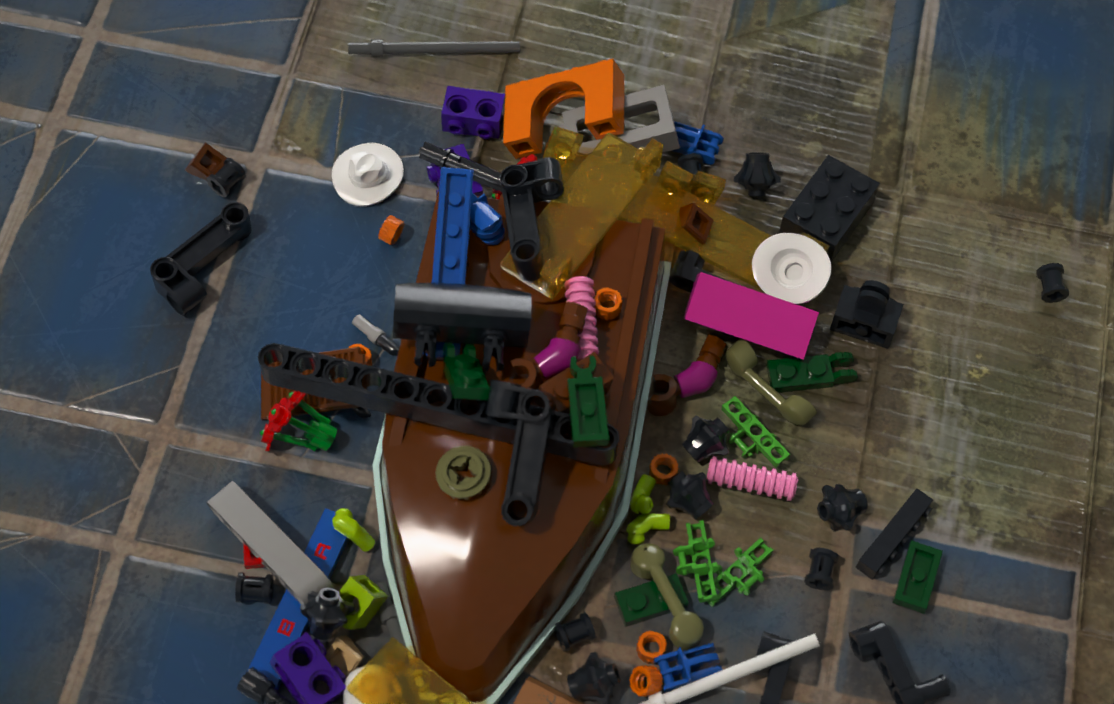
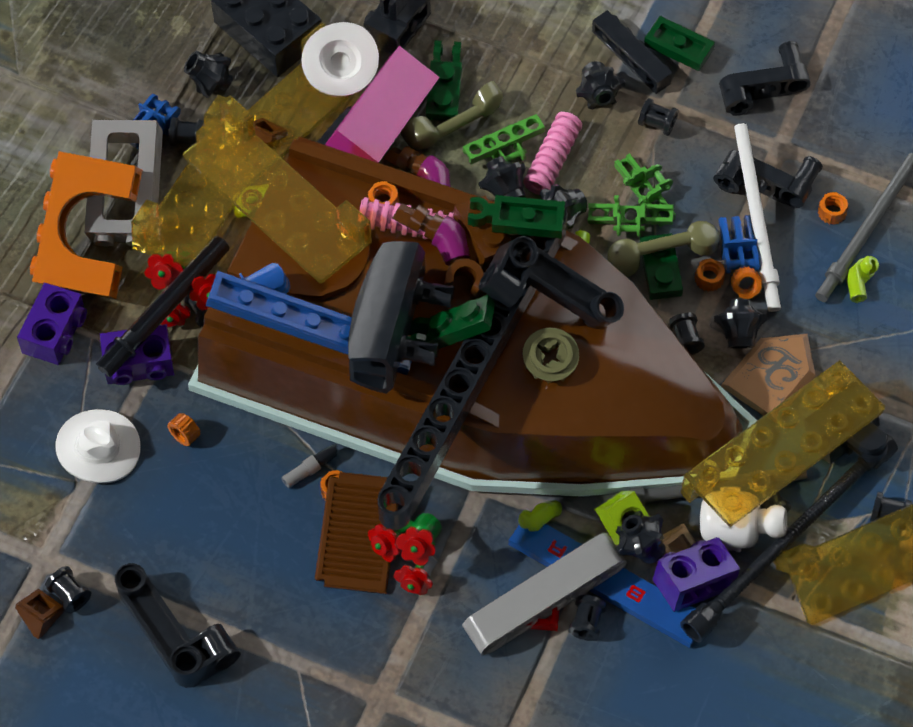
camera: 75 degrees left, 0 degrees up
(521, 189) = (234, 223): black piece -> none

